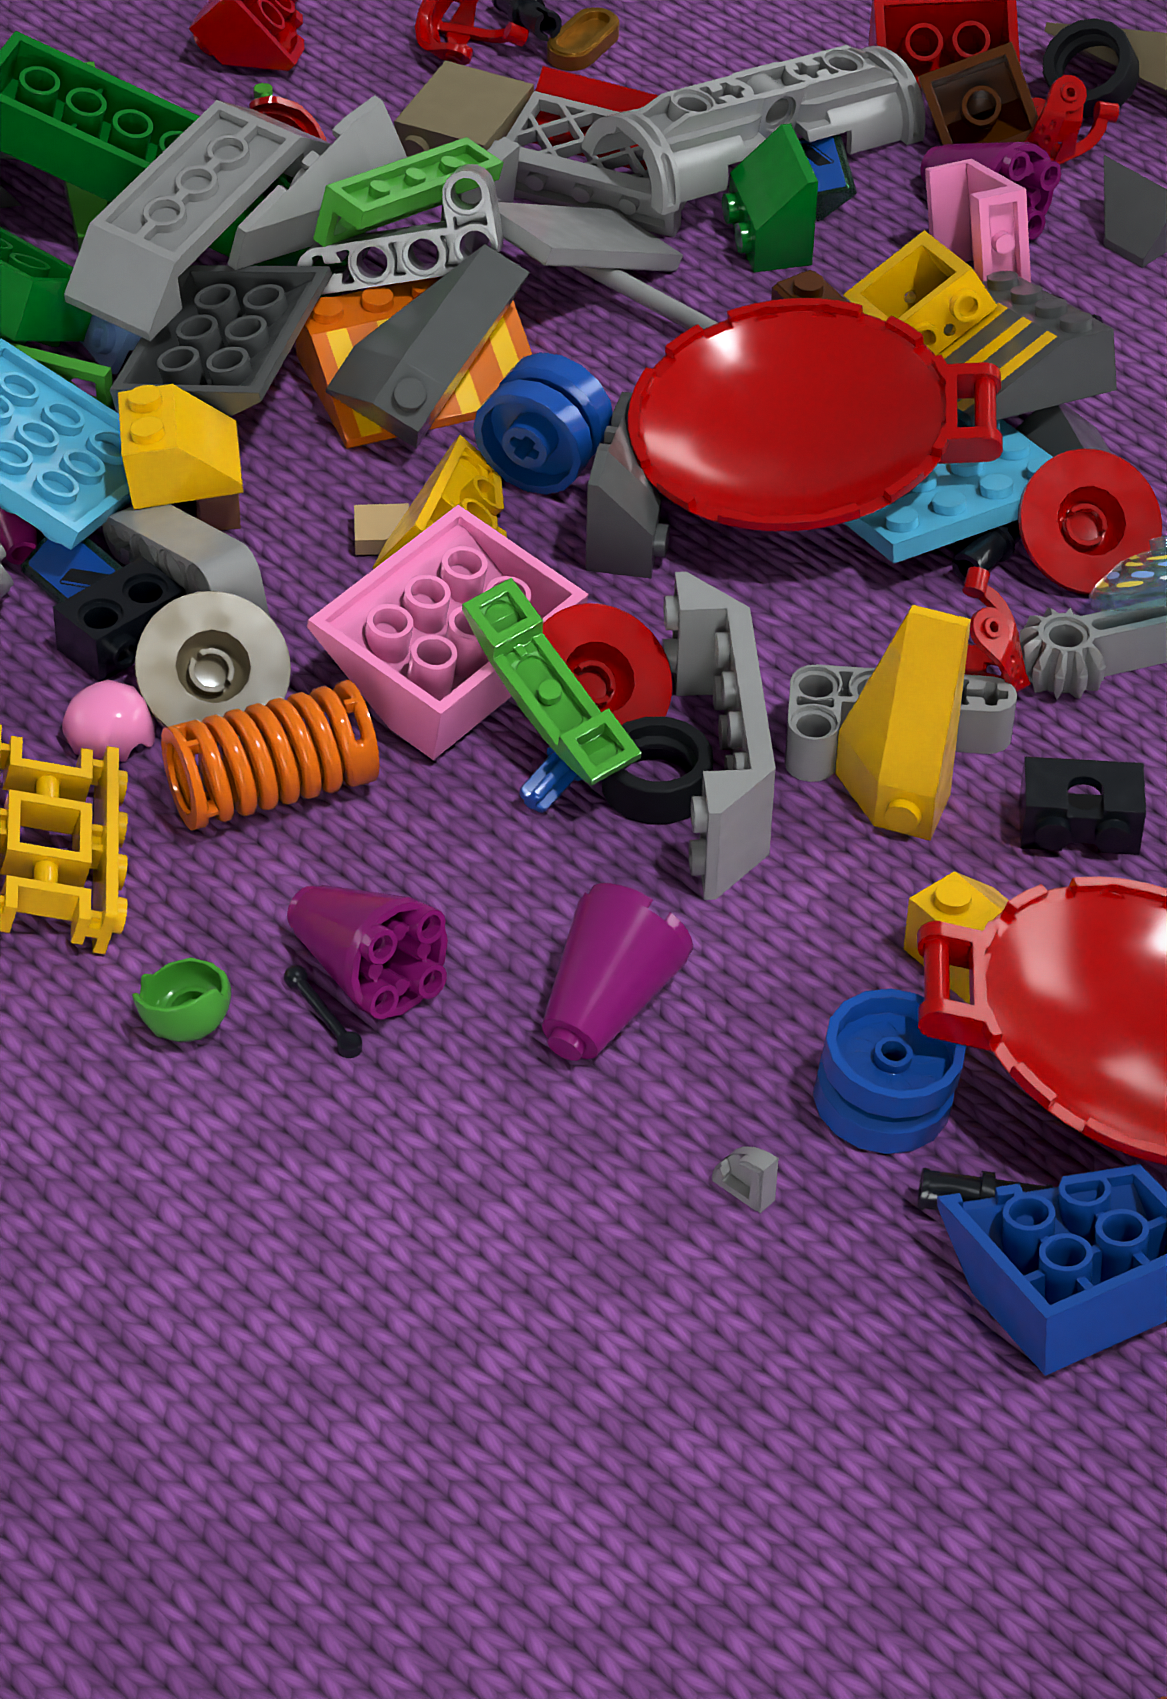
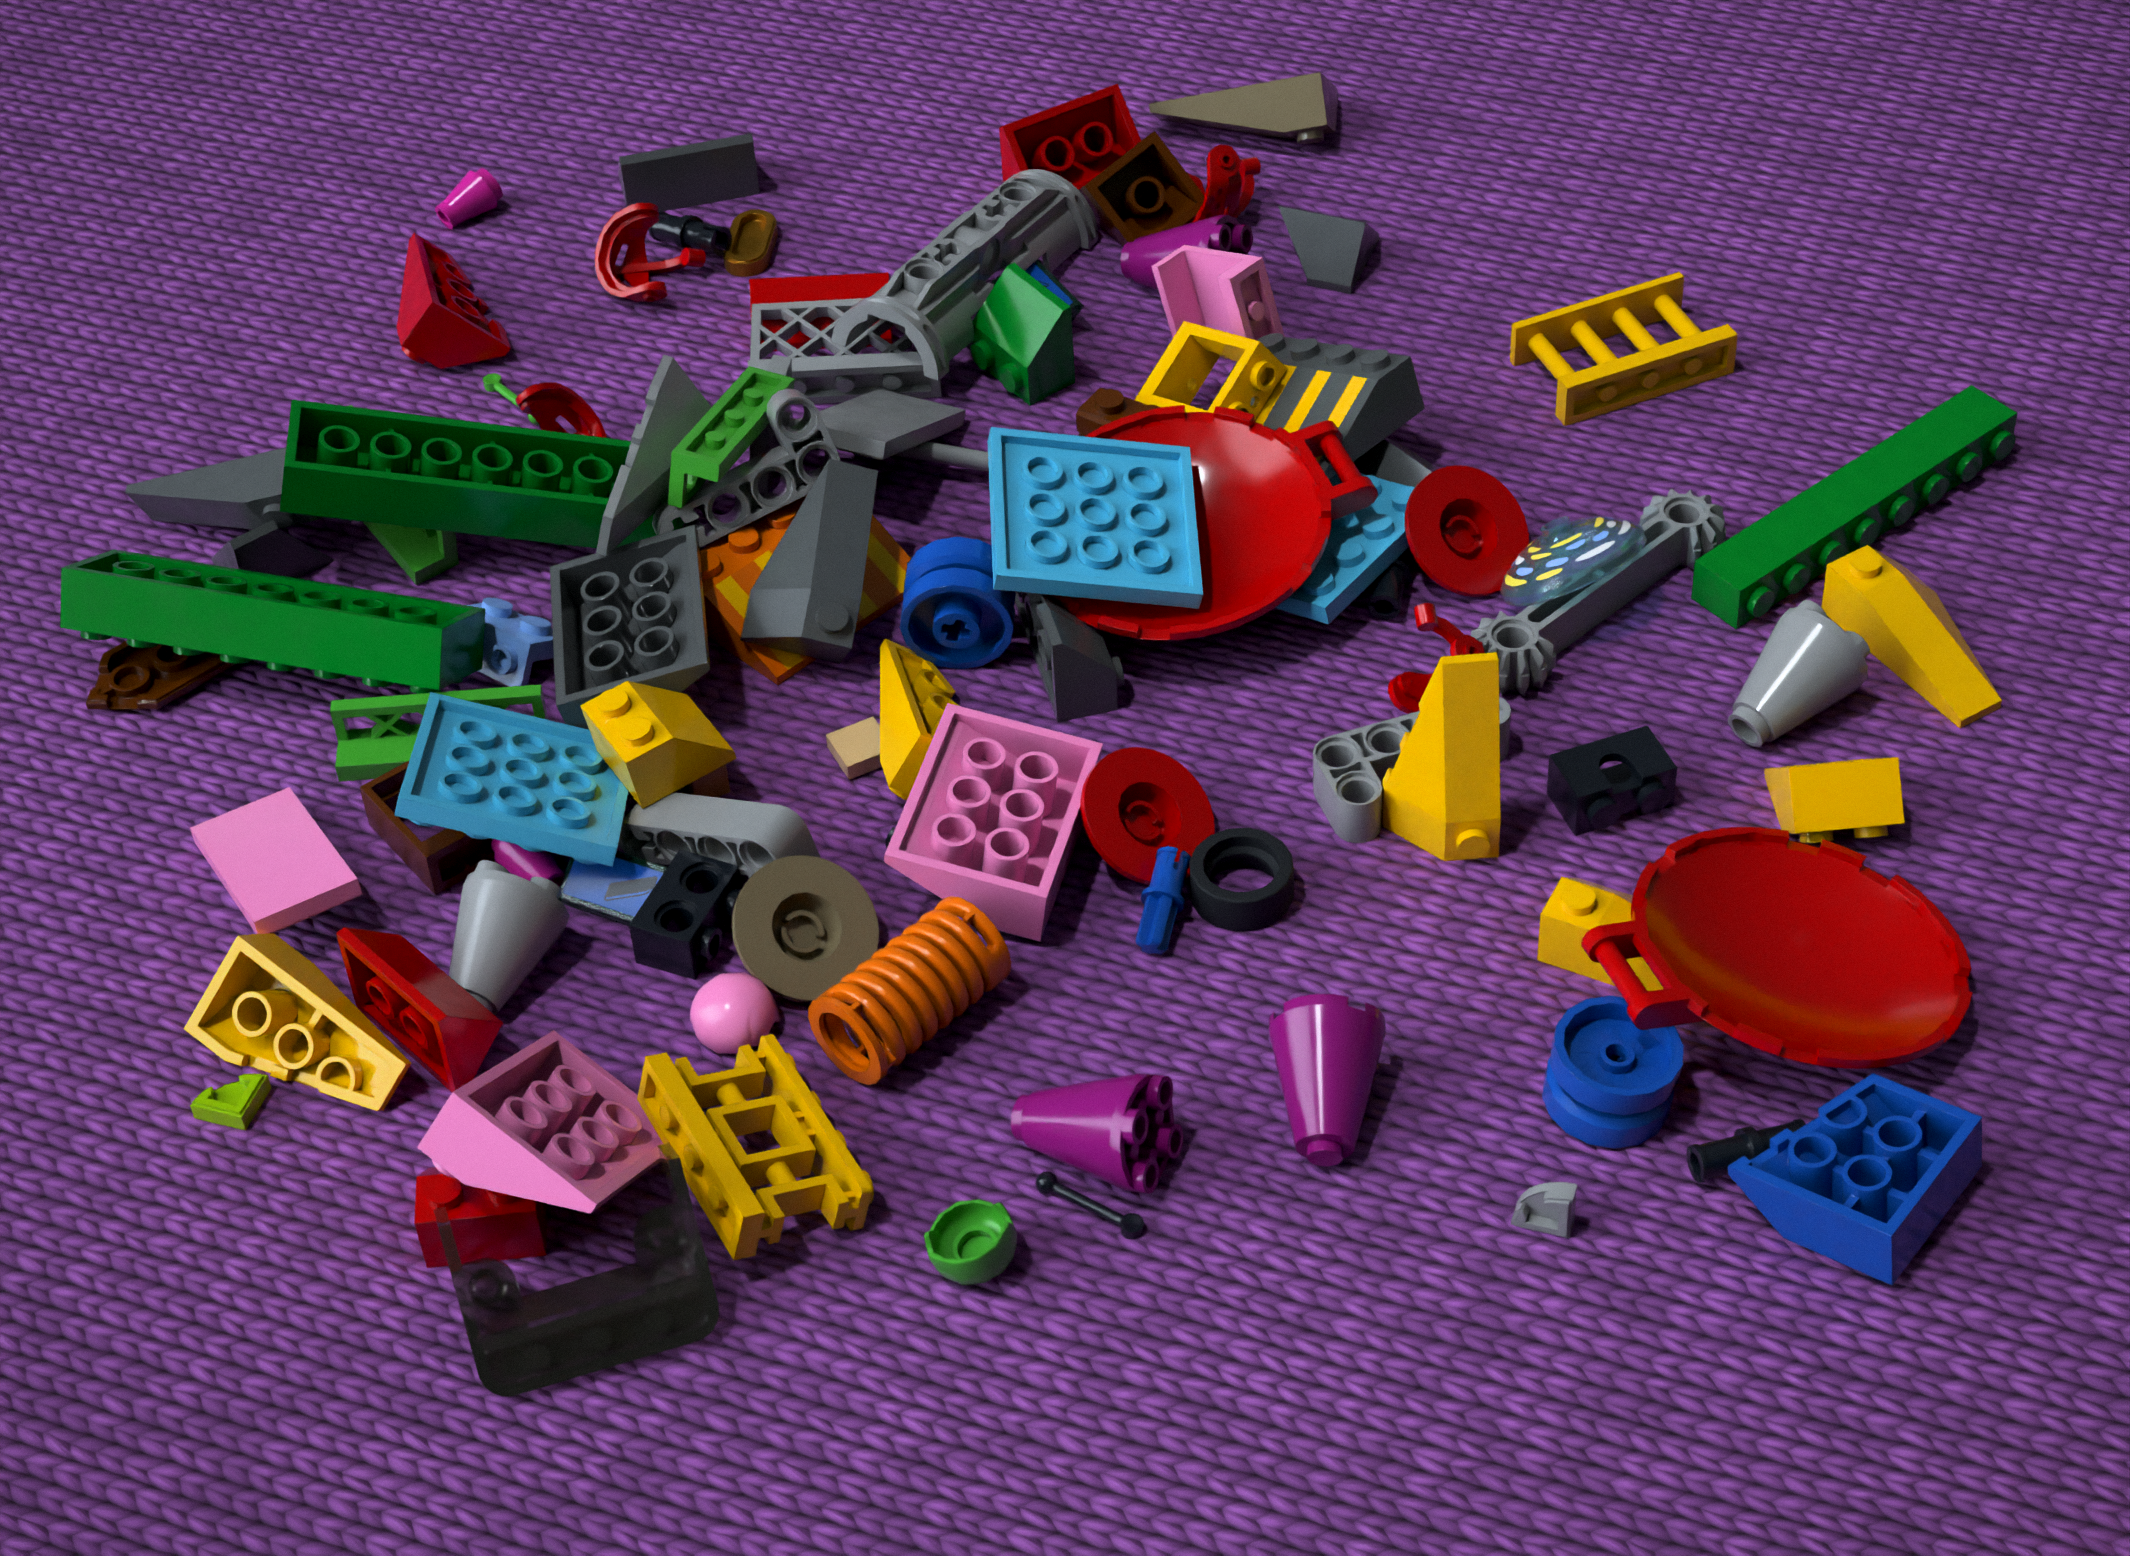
camera: 20 degrees left, 0 degrees up
(177, 211) = (541, 522): light grey slope -> none
(460, 105) = (705, 339): dark tan brick -> none
(545, 687) = (1123, 843): bright green slope -> none
(705, 381) = (1093, 518): none -> medium azure plate
(718, 656) = (1243, 750): light grey slope -> none
(1088, 34) = (1202, 101): black tyre -> none

